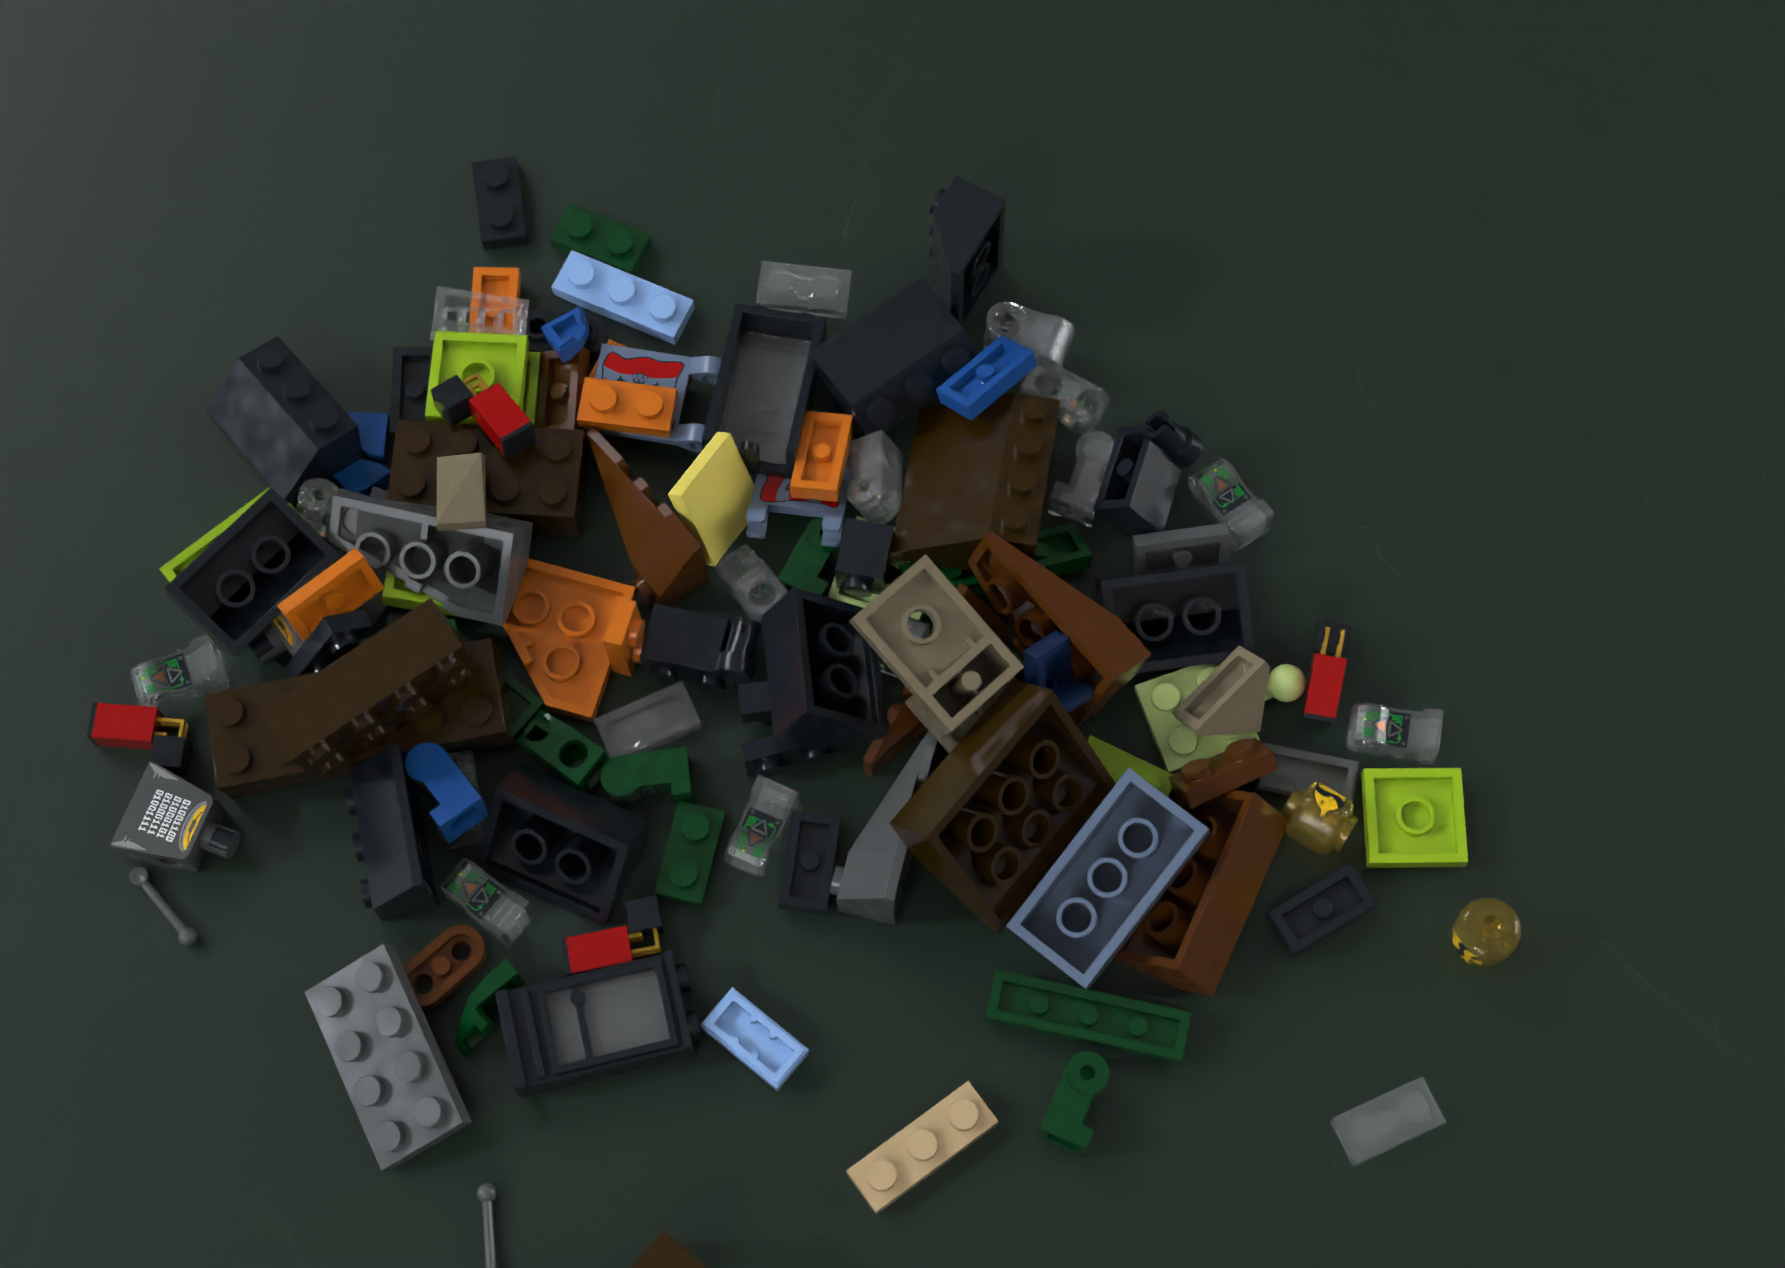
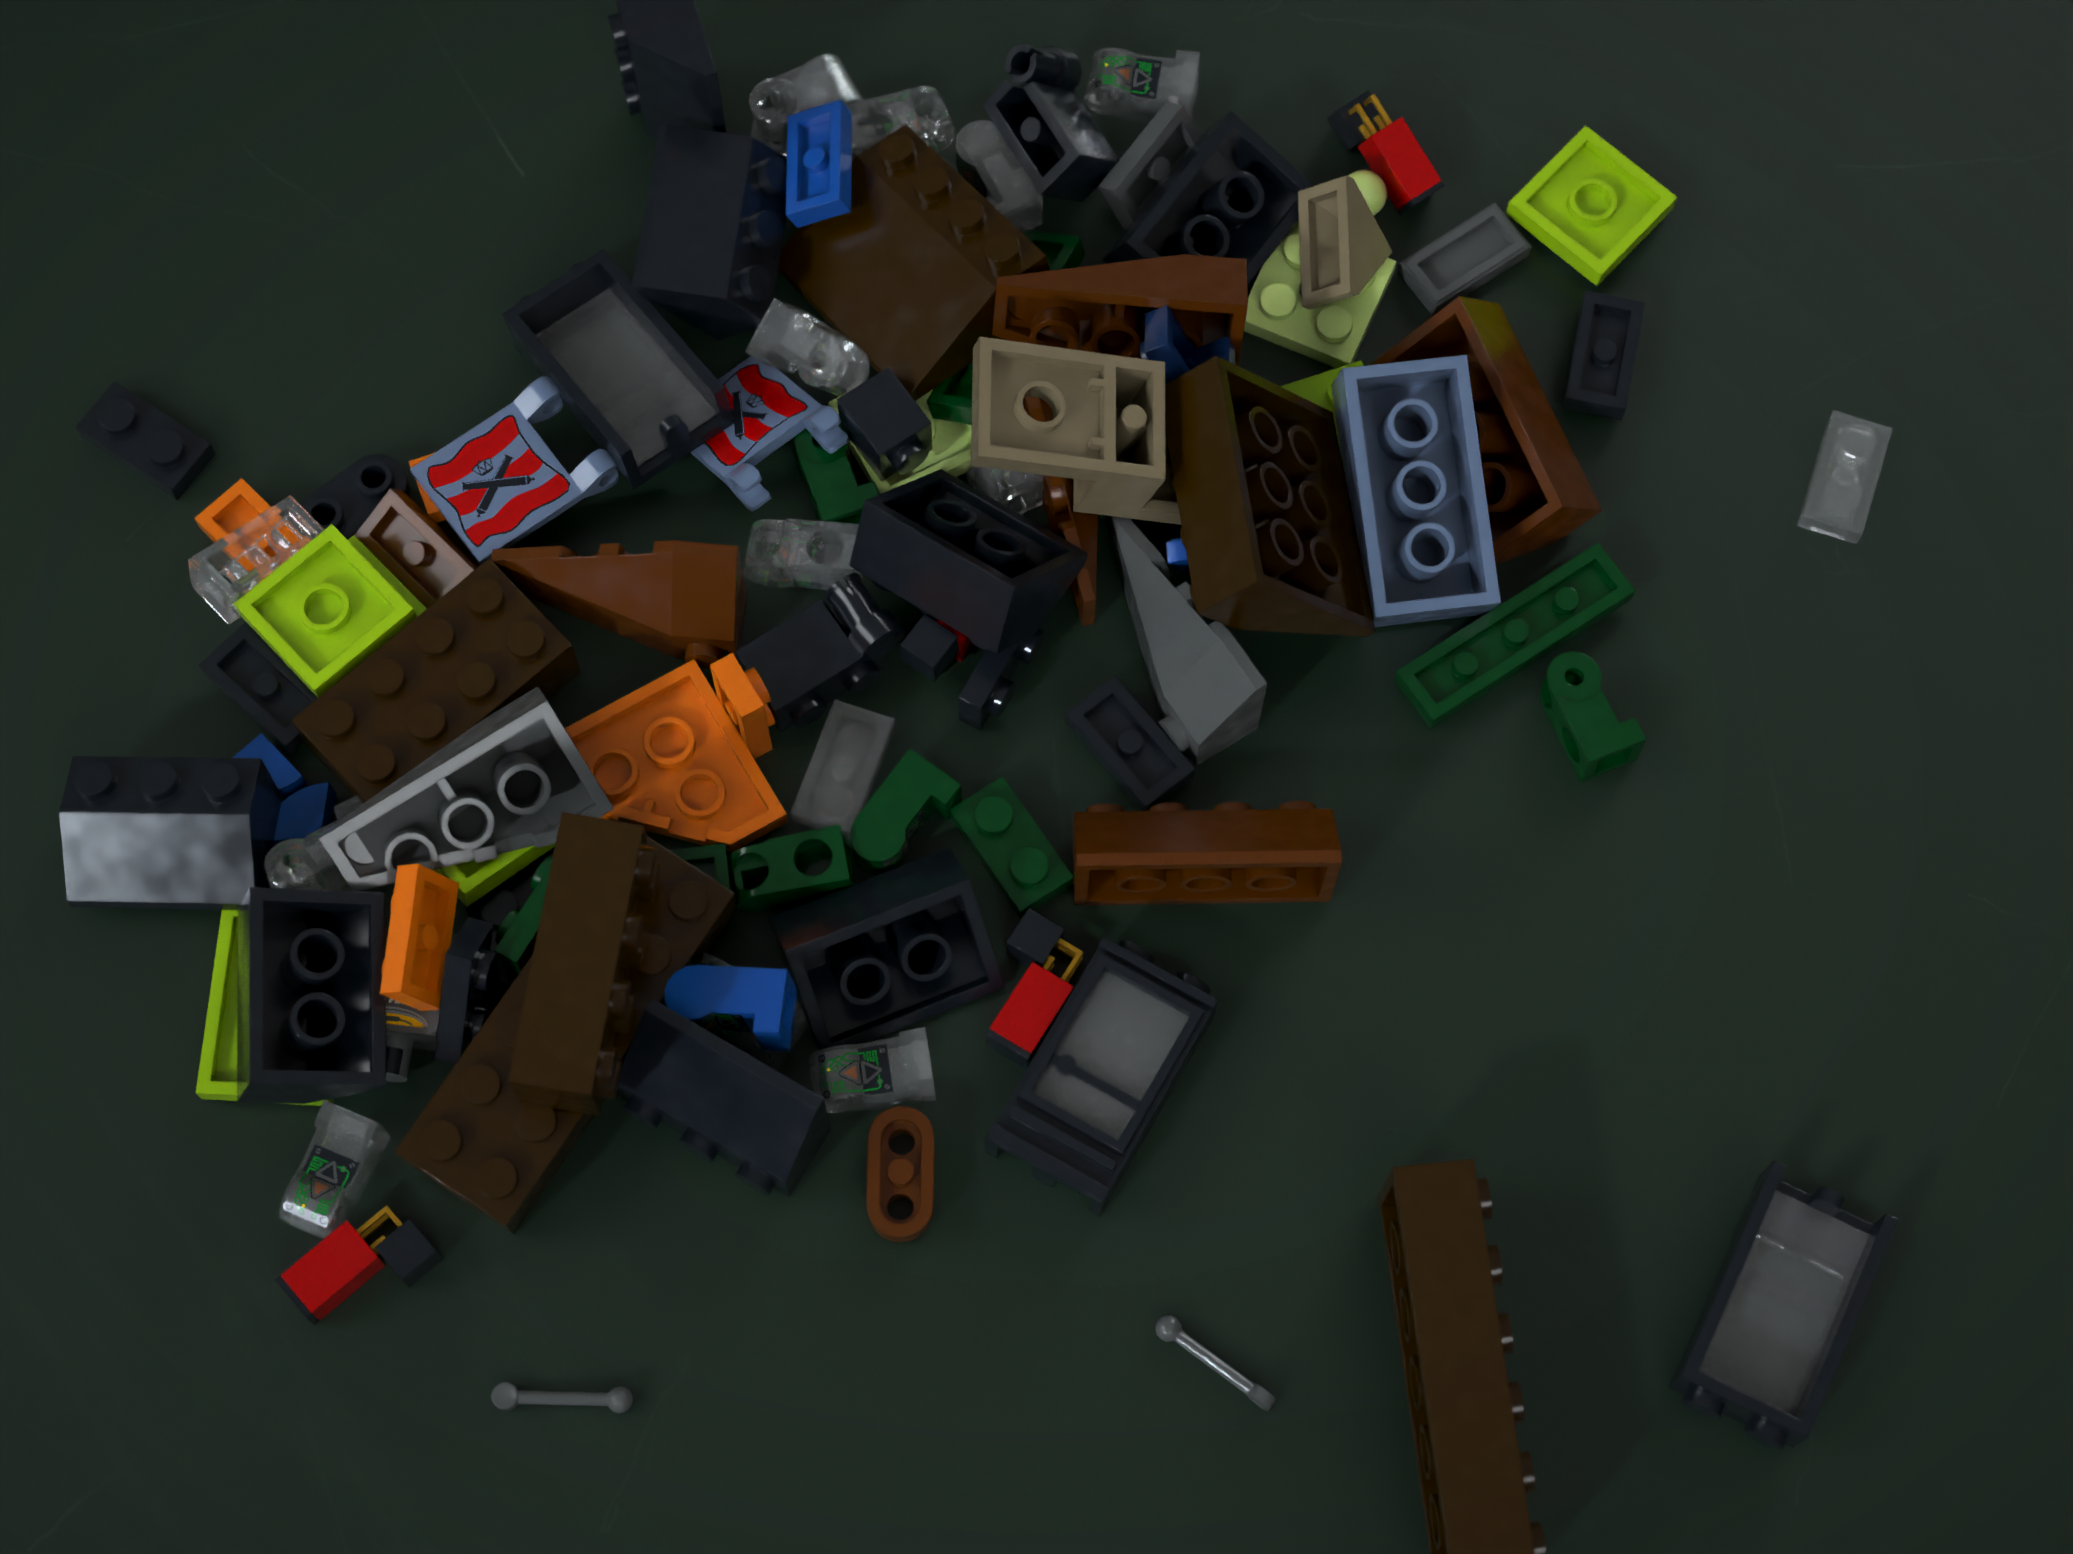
camera: 50 degrees left, 0 degrees up
(172, 823) = (489, 1309): dark grey torso -> none
(387, 1057) = (944, 1302): dark grey plate -> none
(461, 492) = (447, 710): dark tan slope -> none
(474, 1023) = (987, 1185): dark green slope -> none
(491, 409) = (385, 618): piece -> none
(567, 333) = (366, 491): blue tile -> none
(601, 239) = (290, 385): dark green plate -> none
(623, 297) = (372, 416): light blue plate -> none
(627, 407) = (505, 501): orange plate -> none
(714, 497) = (682, 493): light yellow tile -> none
(754, 1039) = (1255, 944): light blue plate -> none
(762, 826) = (1051, 754): leg -> none
(777, 959) = (1205, 854): none -> reddish brown slope
(804, 289) = (541, 250): clear plate -> none
(822, 456) = (751, 376): orange plate -> none
(922, 1147) = (1500, 889): tan plate -> none
(1209, 778) = (1403, 309): reddish brown plate -> none
(1319, 818) = (1521, 276): clear yellow head -> none
(1395, 732) = (1501, 147): clear leg -> none
(1482, 947) = (1756, 240): clear yellow head -> none

